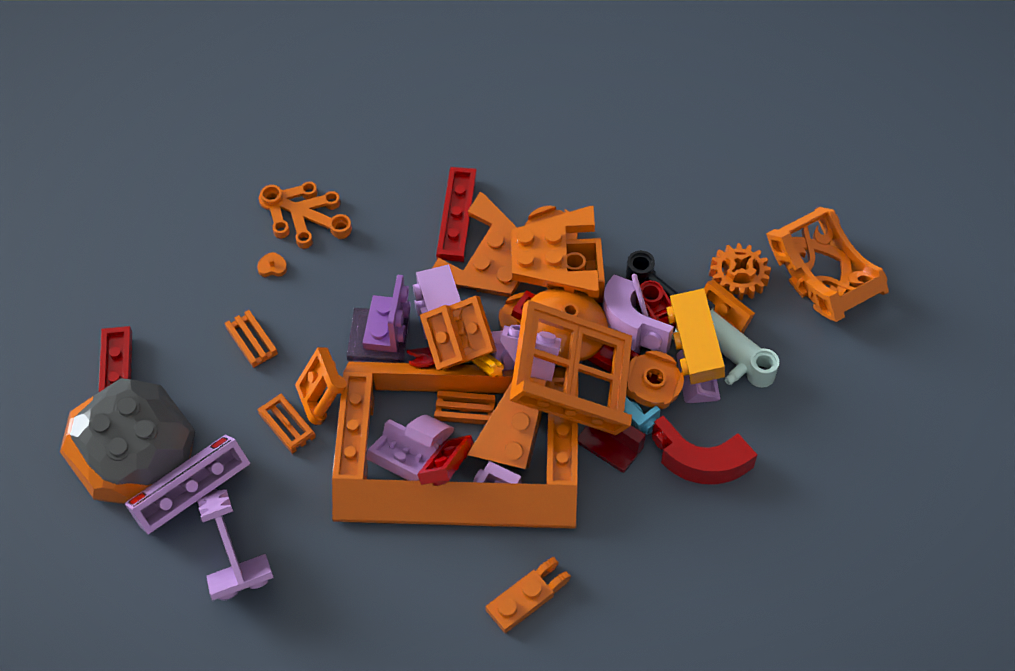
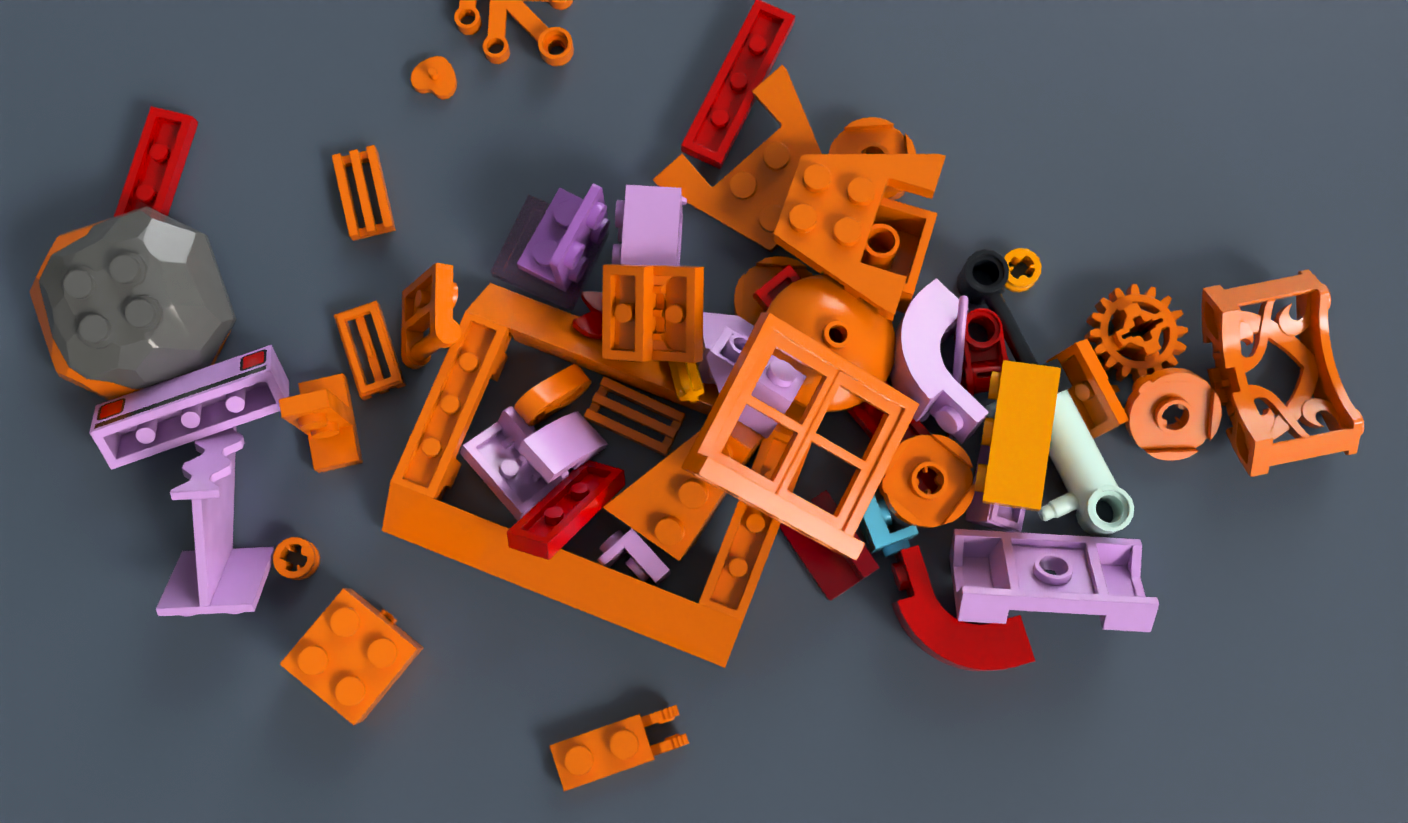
camera: 20 degrees right, 20 degrees up
(275, 467) = (327, 417): none -> orange bracket
(291, 549) = (285, 567): none -> orange bush
(341, 592) = (351, 655): none -> orange brick
(411, 406) = (552, 394): none -> orange beam
(665, 265) = (1034, 265): none -> light orange bush
(711, 416) = (1007, 573): none -> lavender piece
(784, 289) = (1156, 393): none -> orange plate

